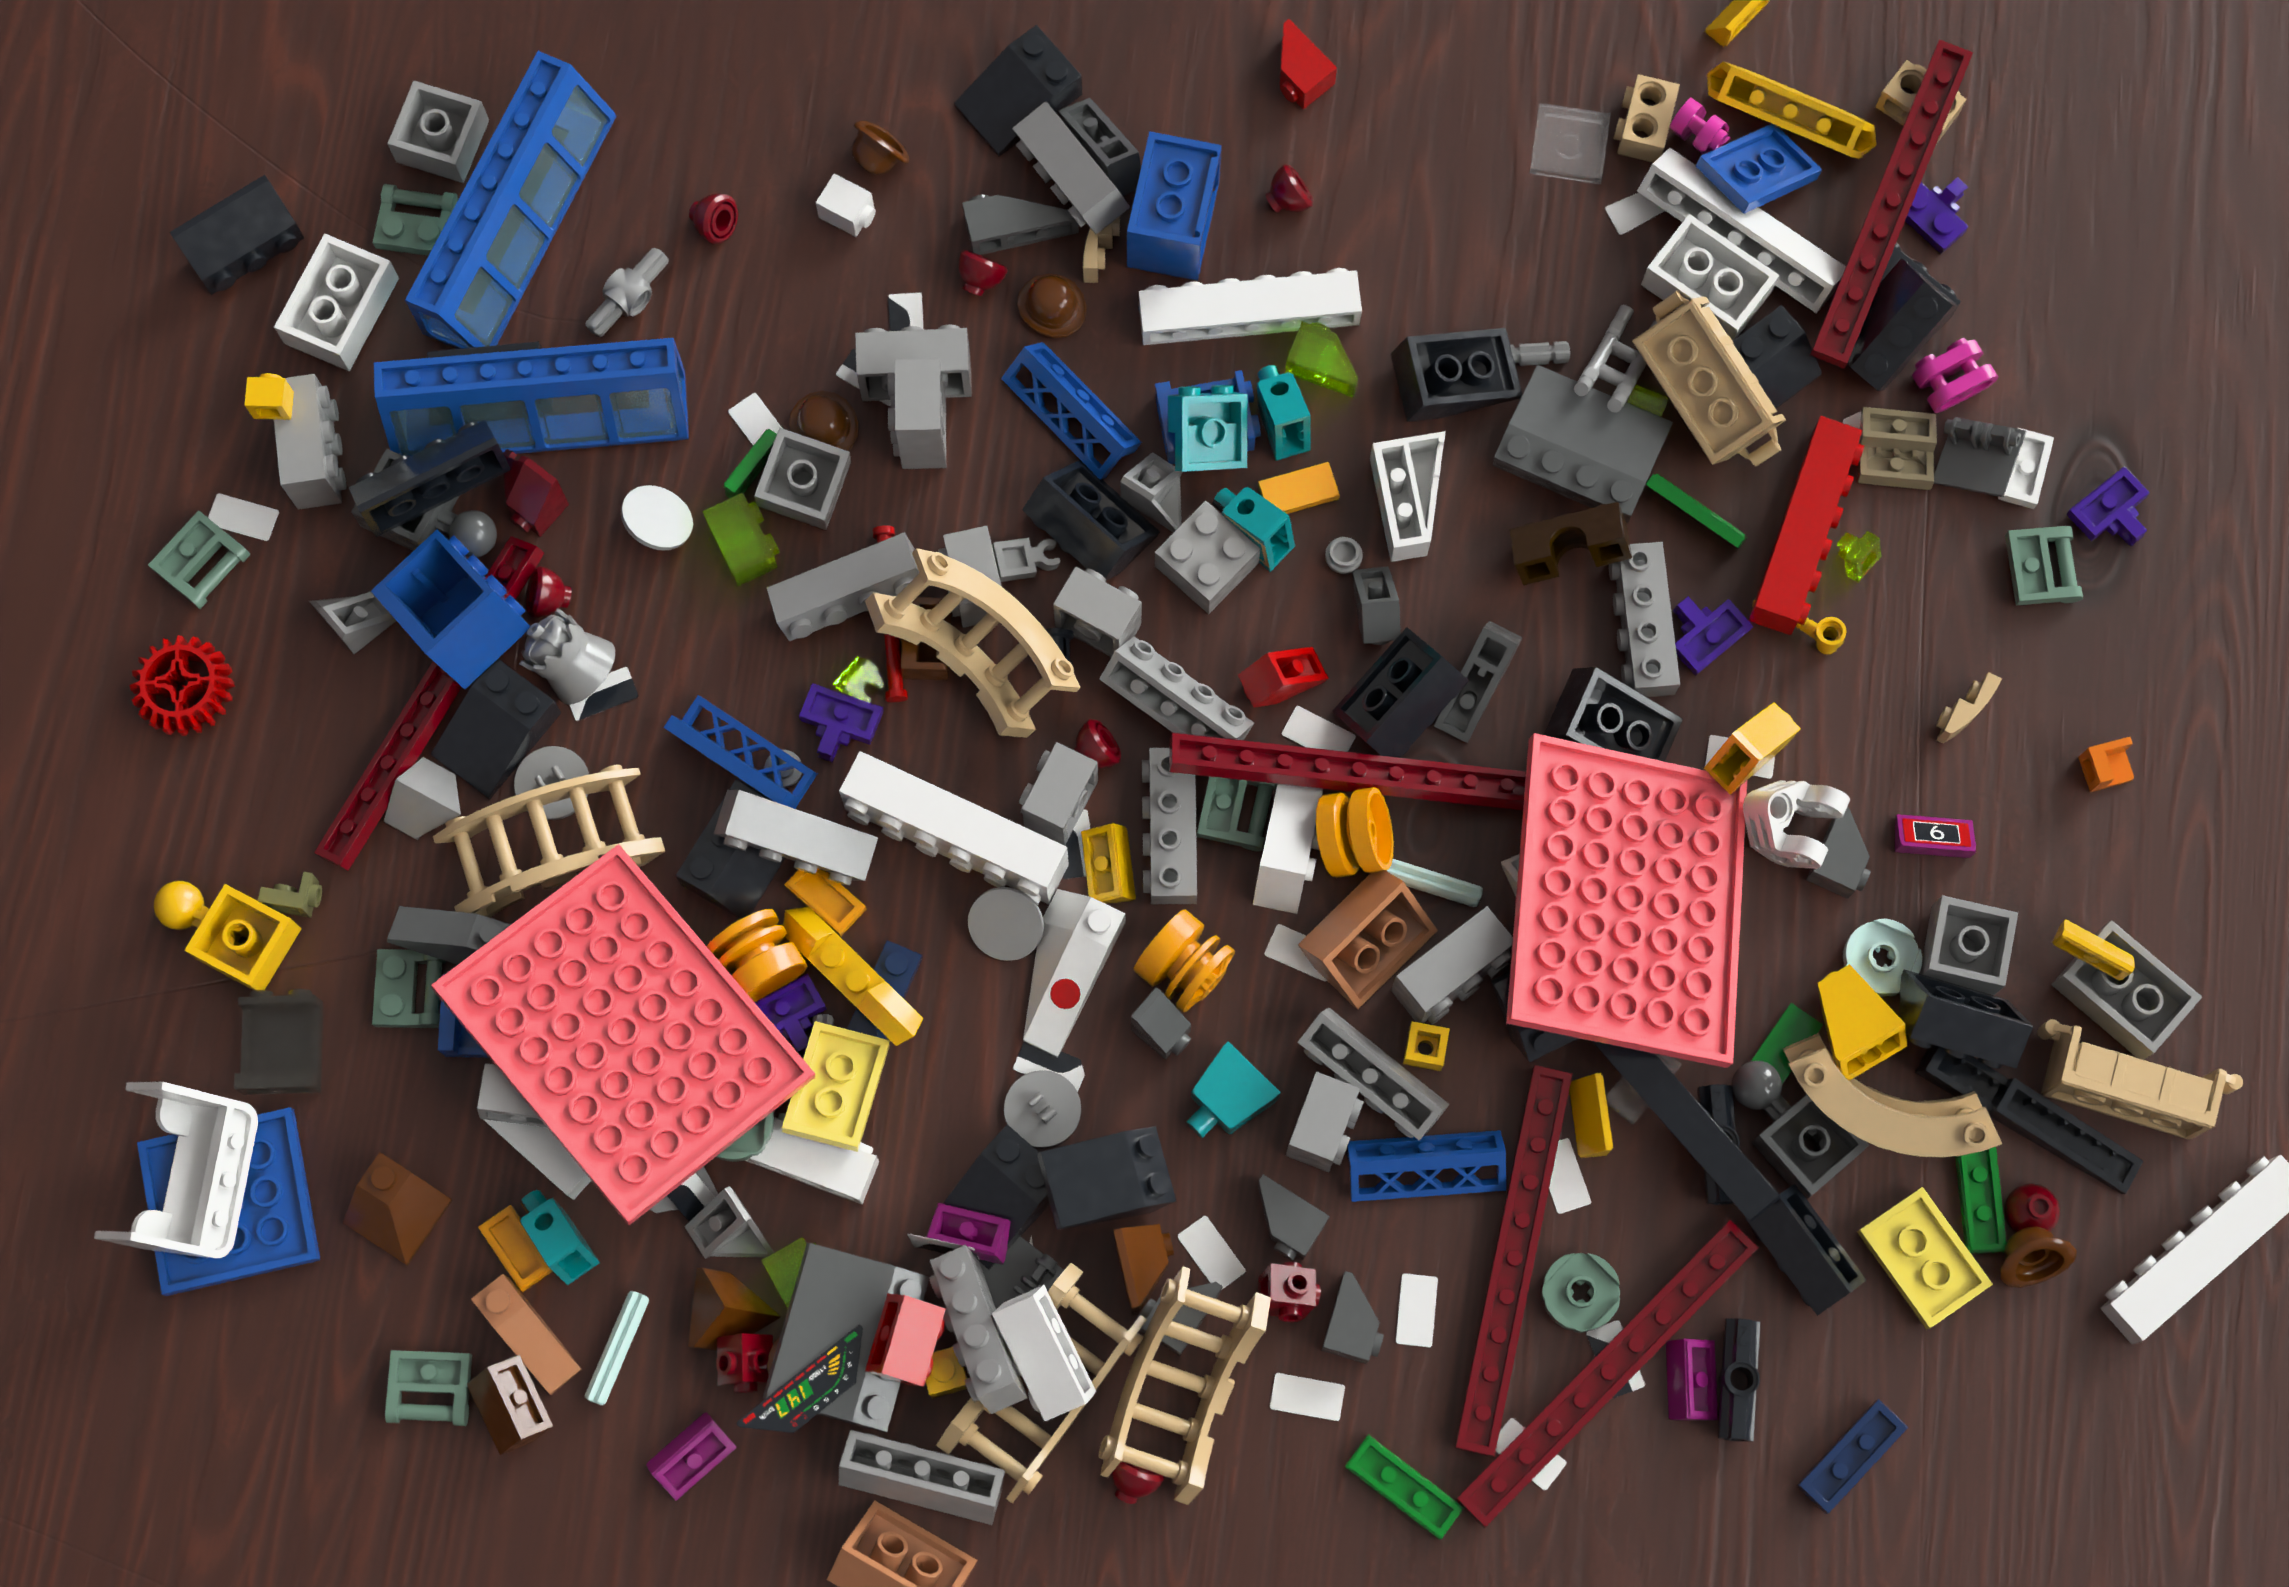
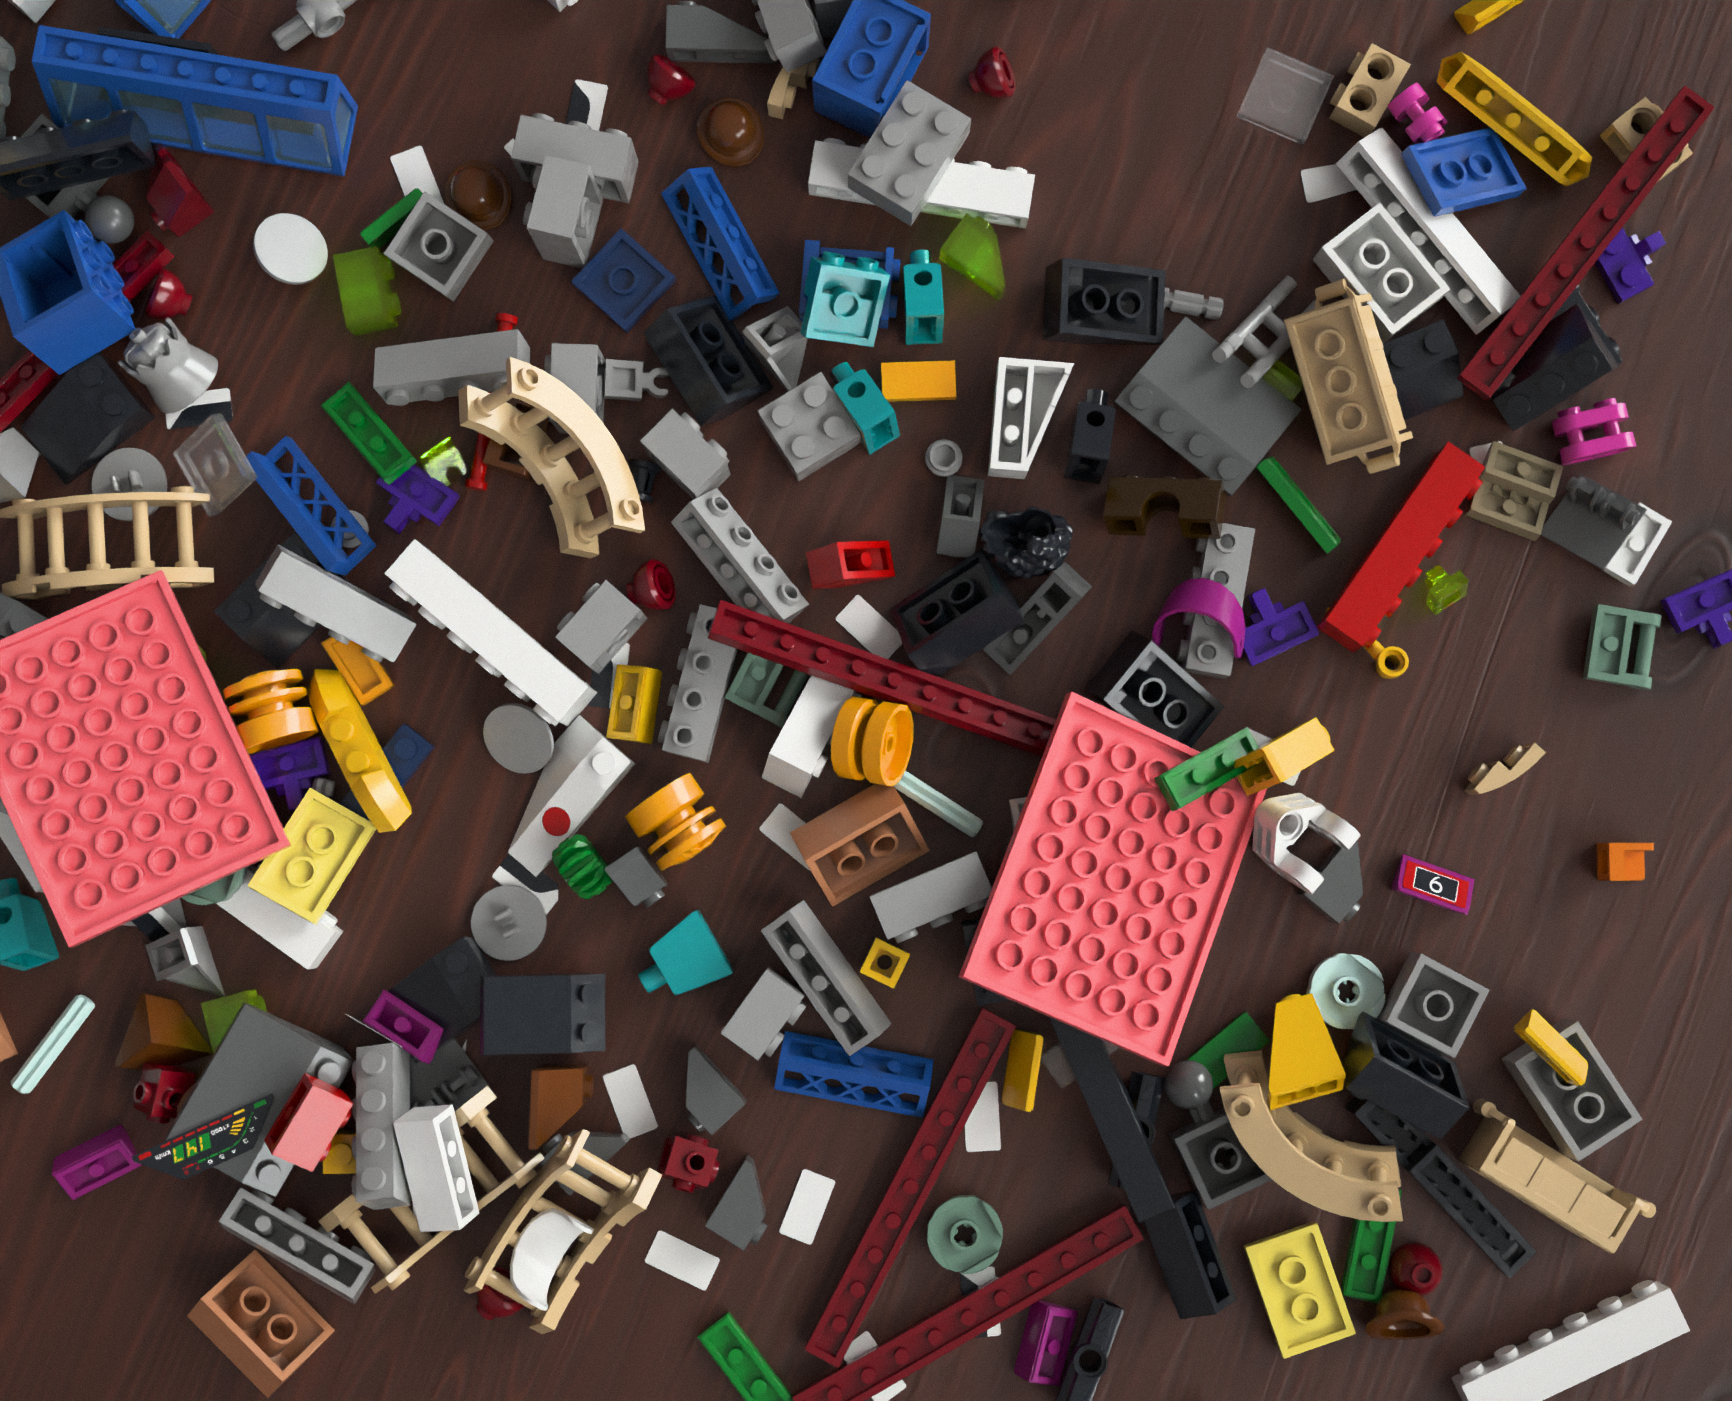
camera: 15 degrees right, 10 degrees up
(637, 737) = (215, 464): none -> clear tile
(779, 671) = (368, 433): none -> green tile
(988, 467) = (623, 280): none -> dark blue plate
(1103, 1029) = (581, 866): none -> green gear
(1170, 1404) = (540, 1252): none -> white piece
(1233, 278) = (909, 153): none -> light grey brick
(1448, 609) = (1026, 541): none -> black hair
(1480, 500) = (1090, 438): none -> black torso
(1637, 615) = (1208, 599): none -> magenta piece
(1683, 778) = (1206, 770): none -> green tile

